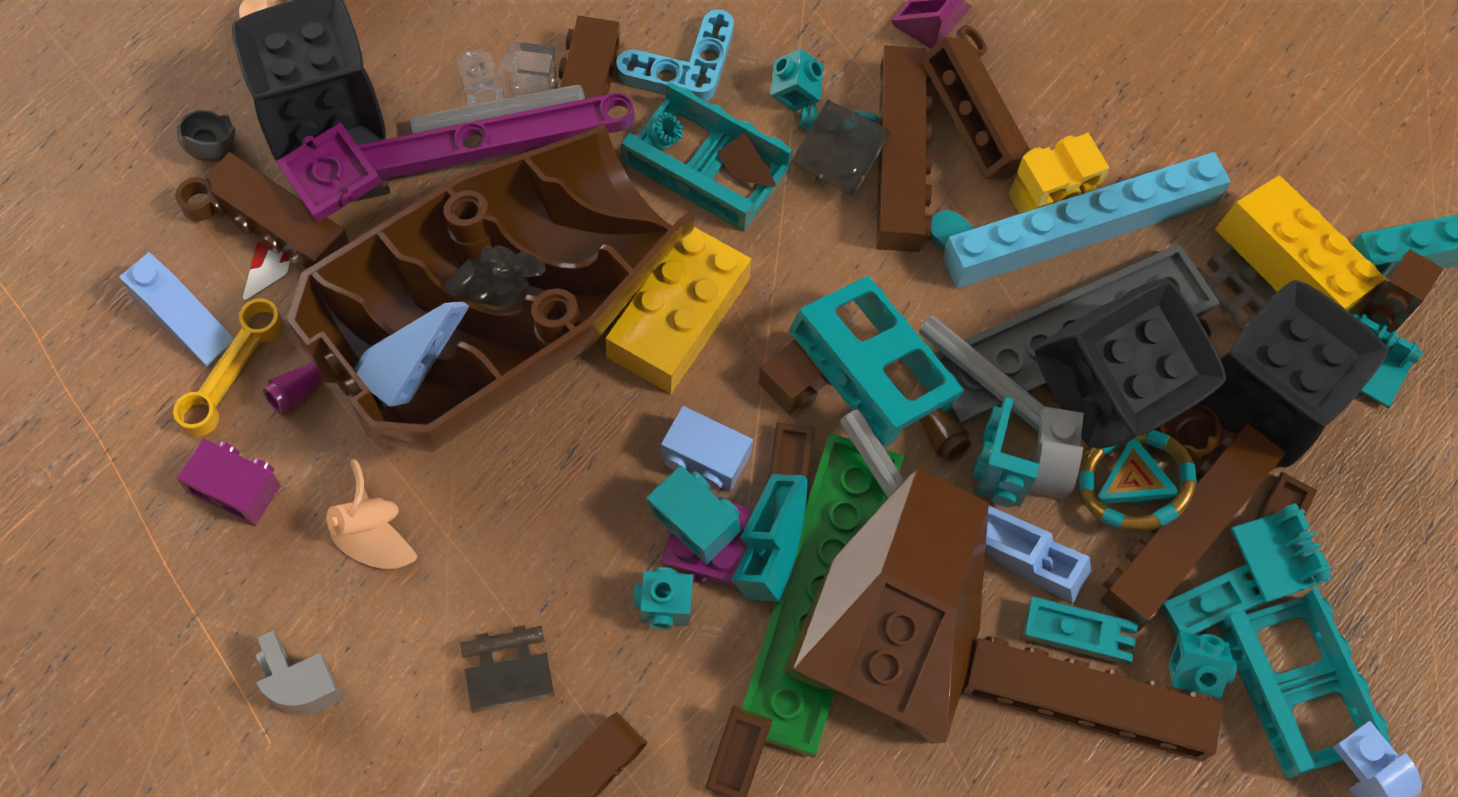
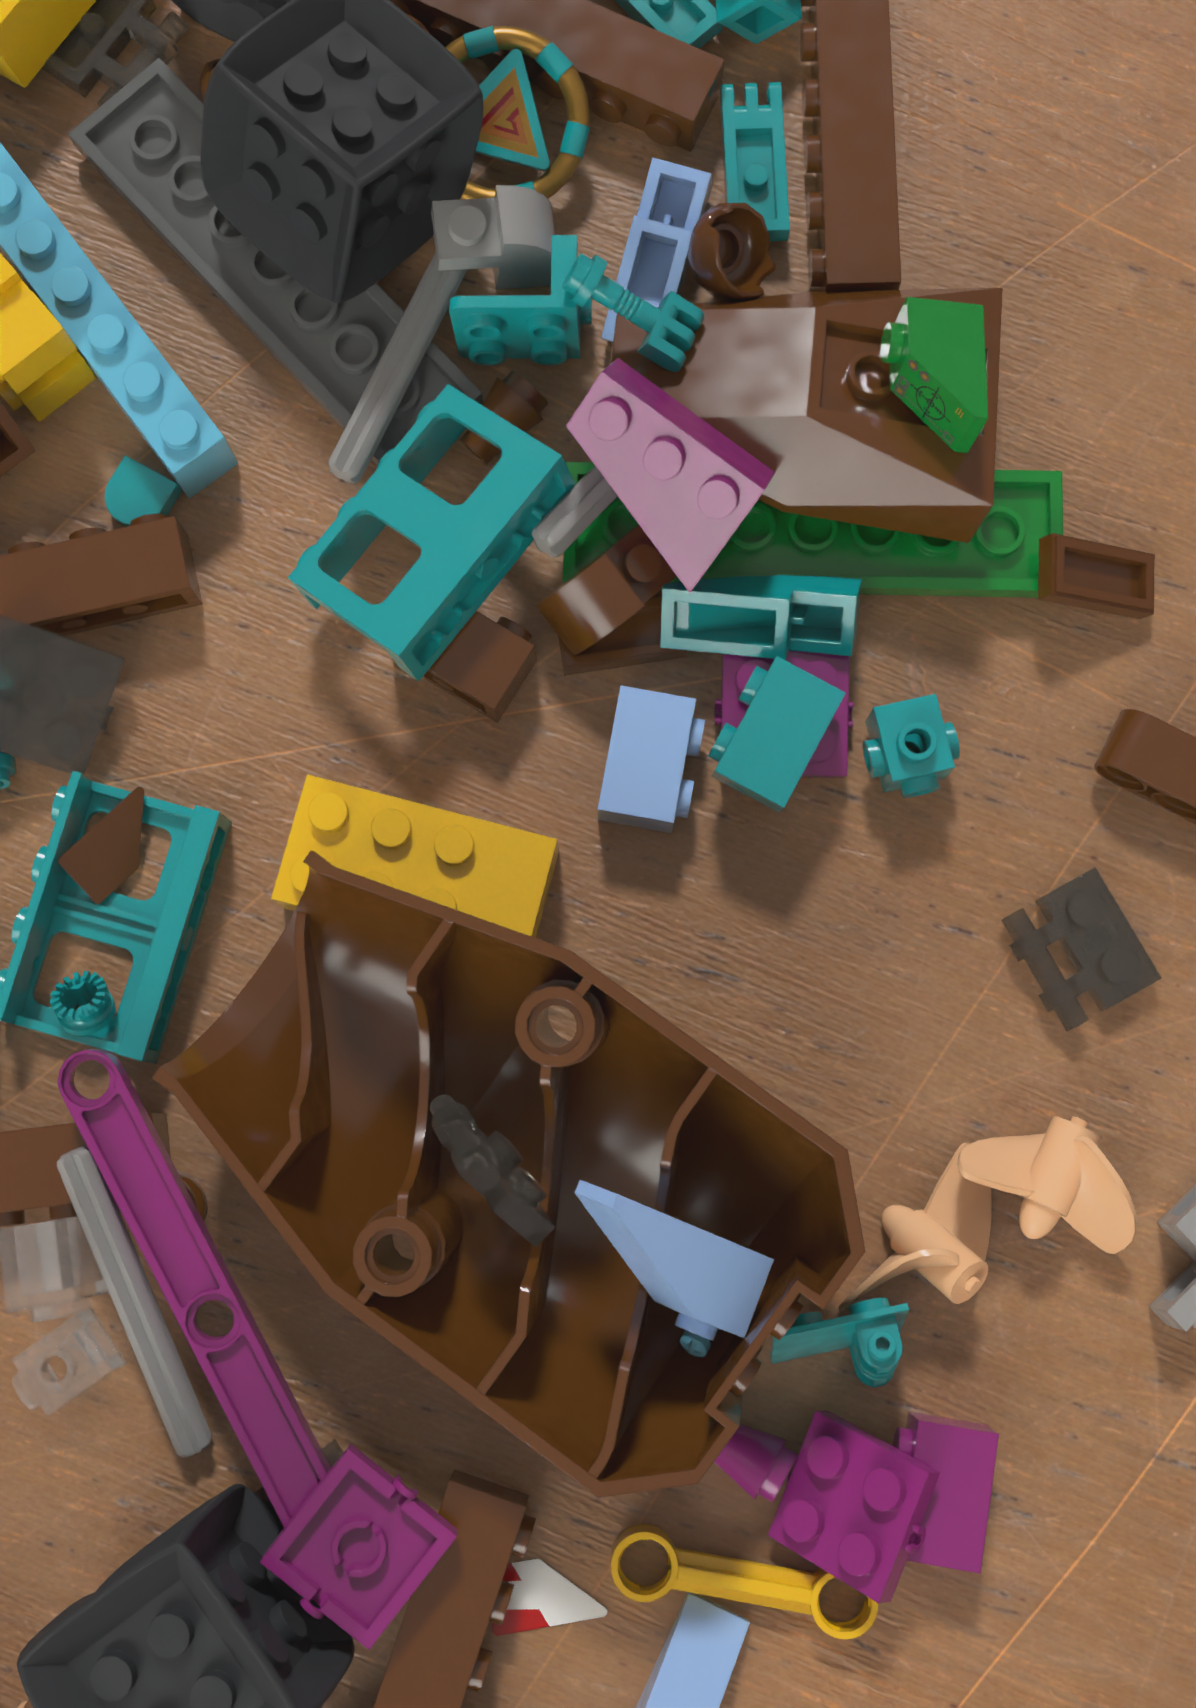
camera: 100 degrees left, 15 degrees up
(242, 426) = (854, 1505): none -> magenta plate
(327, 457) = (869, 1333): none -> teal hinge
(383, 590) = (1057, 1177): none -> light nougat piece
(814, 451) = (606, 591): none -> reddish brown brick
(873, 486) = (668, 468): none -> wedge
(894, 661) = (940, 366): none -> green slope
(967, 511) = (667, 327): none -> teal hinge
(1013, 586) = (731, 251): none -> reddish brown hair

